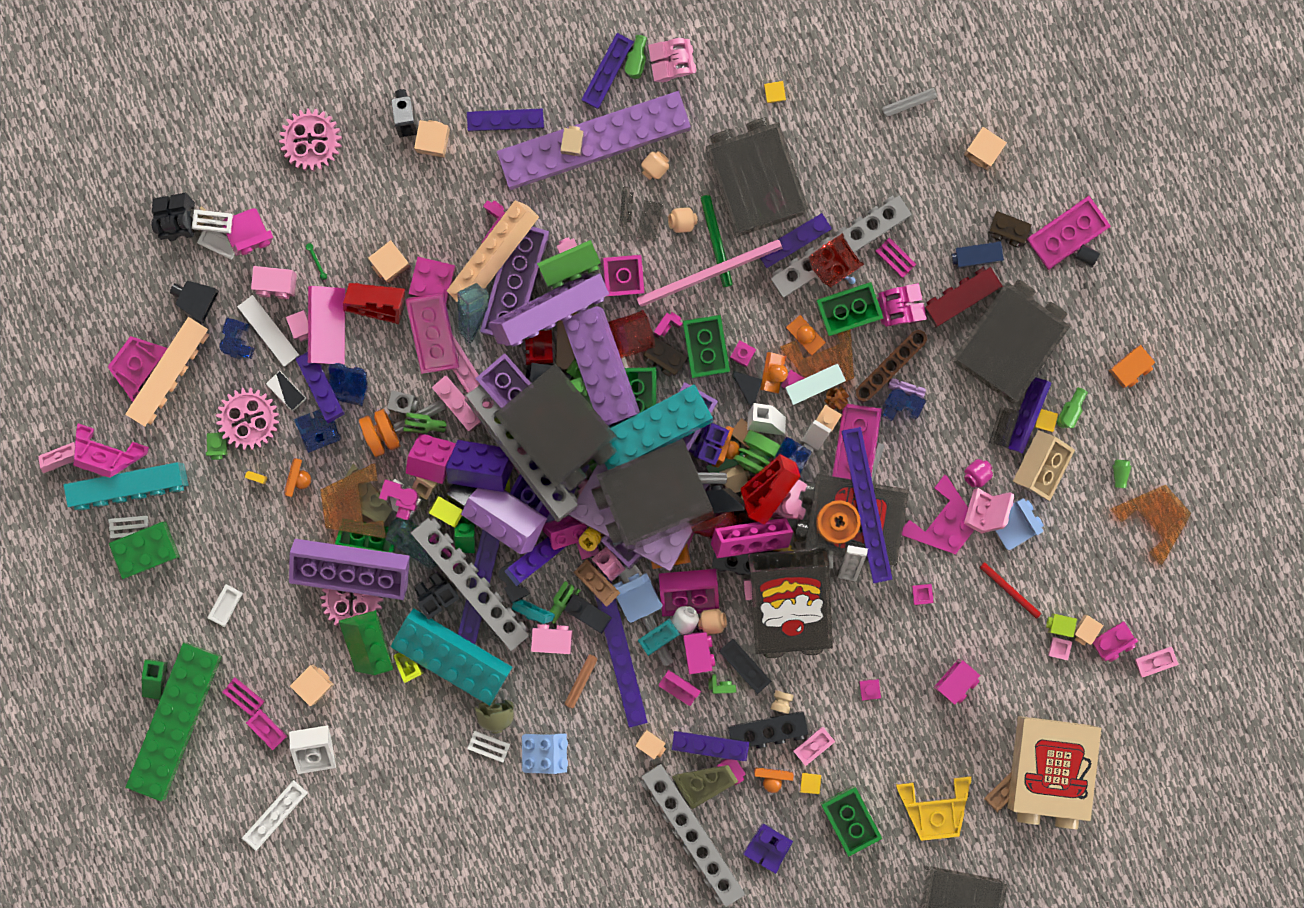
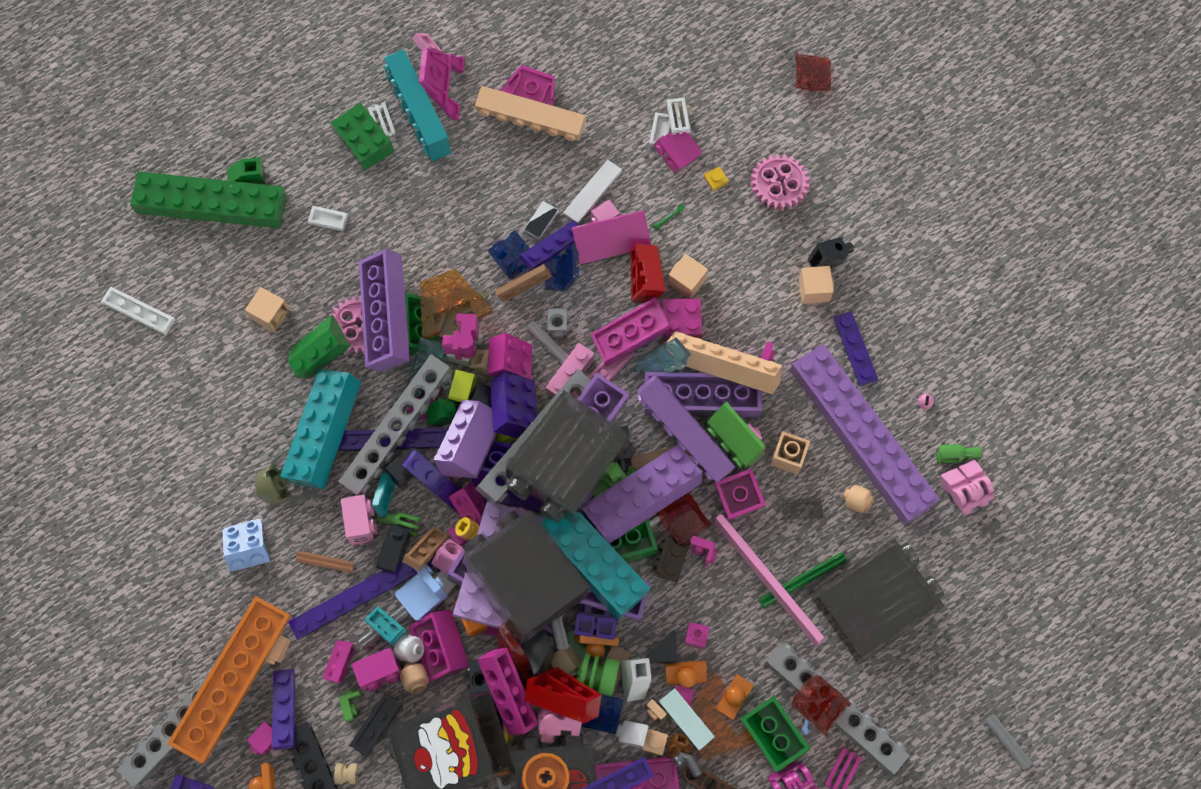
camera: 80 degrees right, 15 degrees down
(172, 216) = (671, 83): black hips -> none
(195, 298) = (603, 122): black torso -> none
(196, 67) = (813, 73): none -> clear red slope
(216, 446) = (474, 174): bright green bracket -> none
(232, 340) = (574, 160): clear blue hips -> none
(238, 702) = (259, 244): dark pink tile -> none
(240, 402) = (492, 201): bright pink gear -> none
(256, 477) = (453, 213): yellow tile -> none
(266, 729) = (218, 282): dark pink plate -> none
(273, 281) = (638, 181): bright pink brick -> none
(287, 202) = (716, 178): none -> yellow plate
(296, 478) = (461, 248): orange tile -> none
(312, 749) = (206, 326): white slope -> none
(353, 425) = (523, 283): none -> medium nougat tile
(376, 434) = (522, 307): orange wheel -> none
(408, 668) = (300, 392): neon yellow slope -> none
(425, 424) = (542, 348): bright green arm -> none
(439, 594) = (374, 397): black hips -> none
(473, 740) = (244, 473): white tile -> none
(540, 348) = (645, 435): red cylinder -> none
(572, 141) = (856, 407): tan brick -> none
(574, 73) = (921, 401): none -> bright pink hinge
(594, 216) = (790, 452): none -> light nougat head
(607, 71) = (935, 429): dark purple plate -> none
(625, 215) = (801, 482): clear smoke plate -> none
(671, 788) = (229, 680): none -> orange plate
(682, 220) = (813, 540): light nougat head -> none
(704, 784) = (247, 719): olive wing -> none
(706, 347) = (692, 596): green brick -> none
(774, 92) = (970, 599): yellow tile -> none
(797, 239) = (829, 662): dark purple plate -> none
(800, 410) = (655, 711): none -> light nougat plate
(851, 394) = (689, 761): none -> flat silver arm

